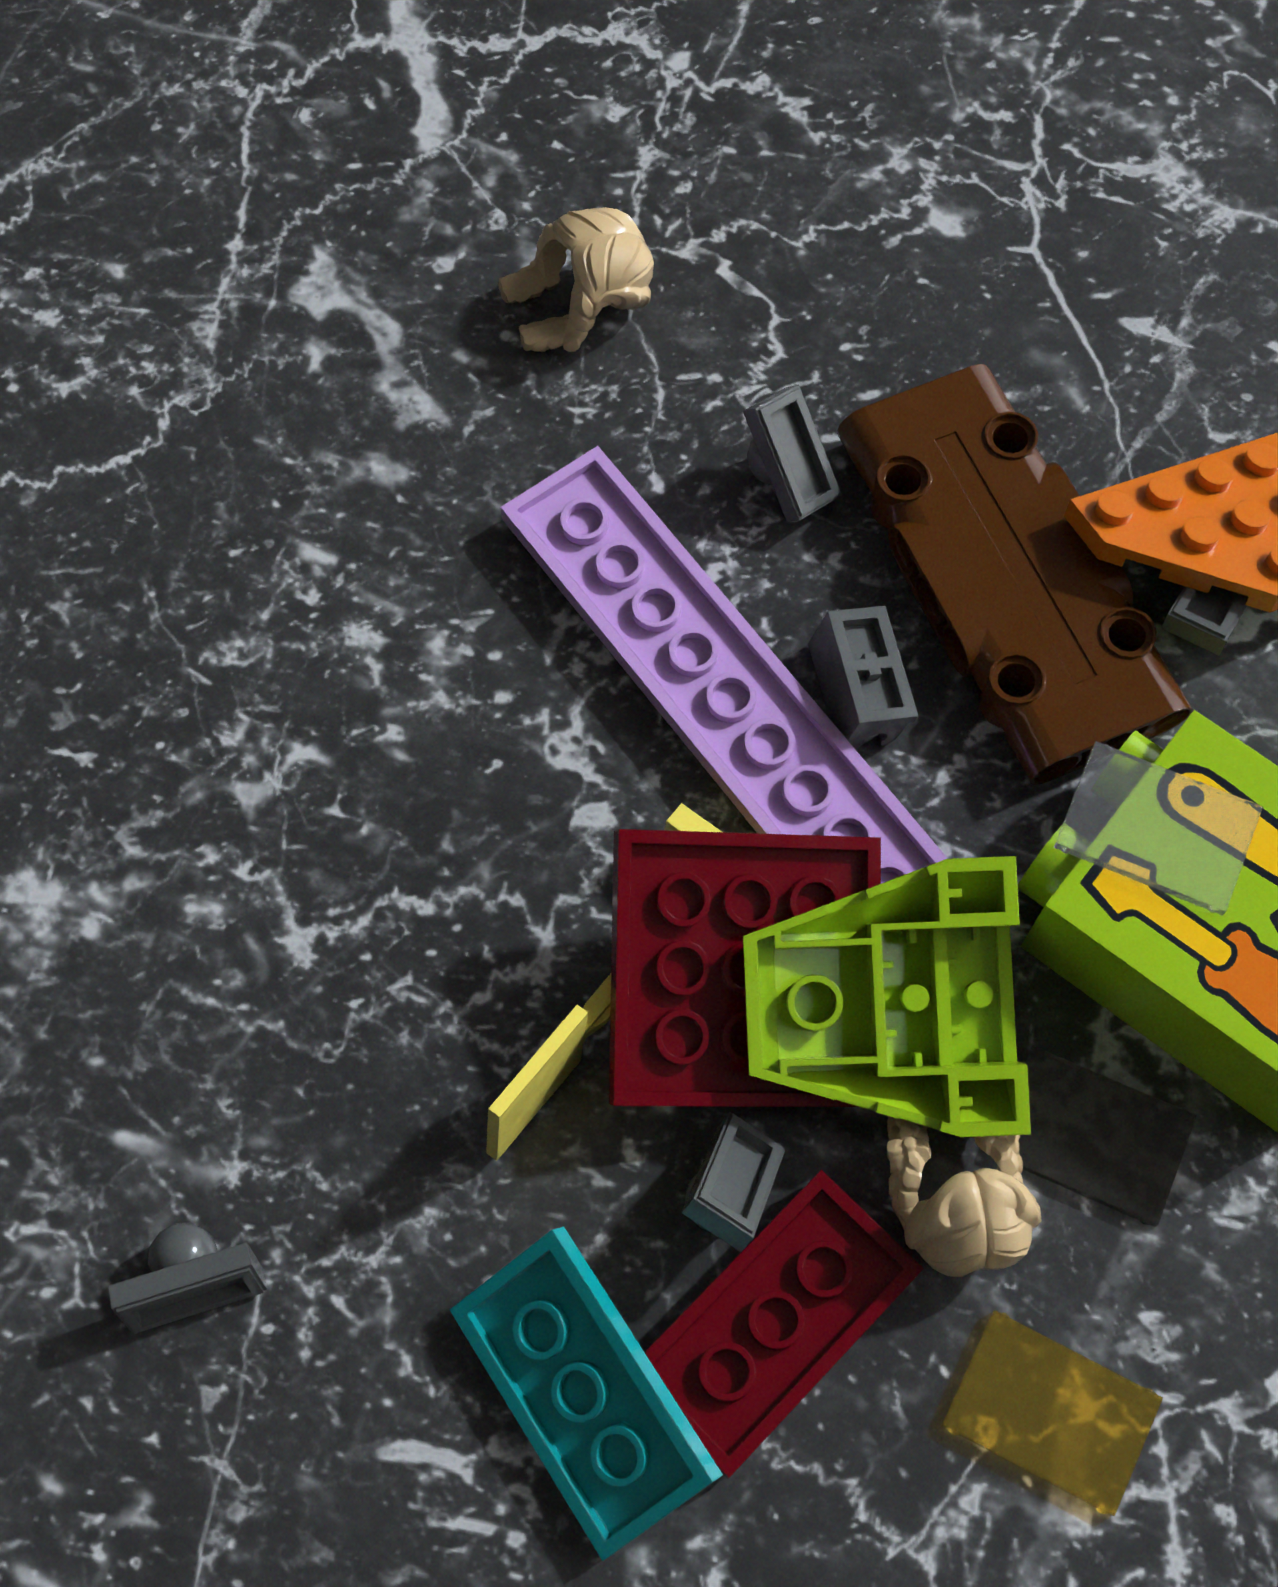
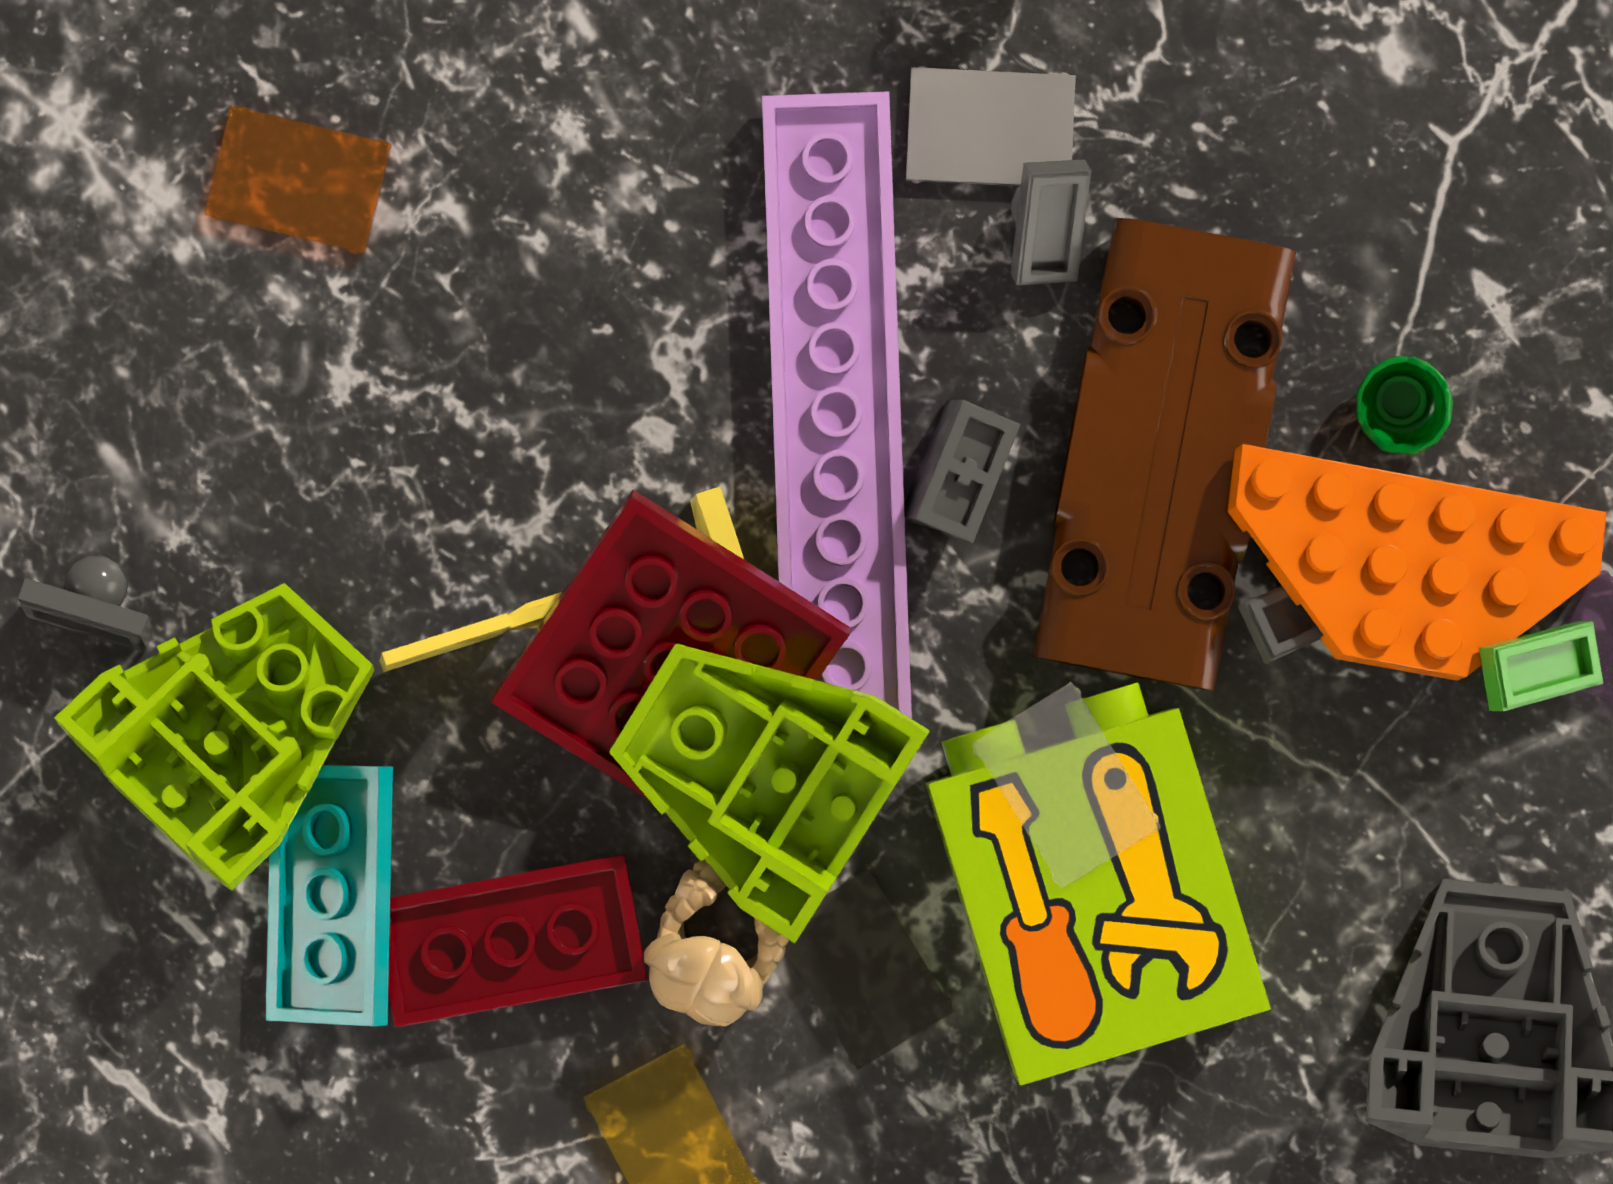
camera: 35 degrees right, 20 degrees up
(156, 809) = (298, 179): none -> clear orange piece
(385, 1308) = (224, 728): none -> lime wedge
(685, 437) = (986, 124): none -> light grey piece
(733, 1182) = (547, 819): dark grey tile -> none
(1157, 420) = (1404, 405): none -> green hair

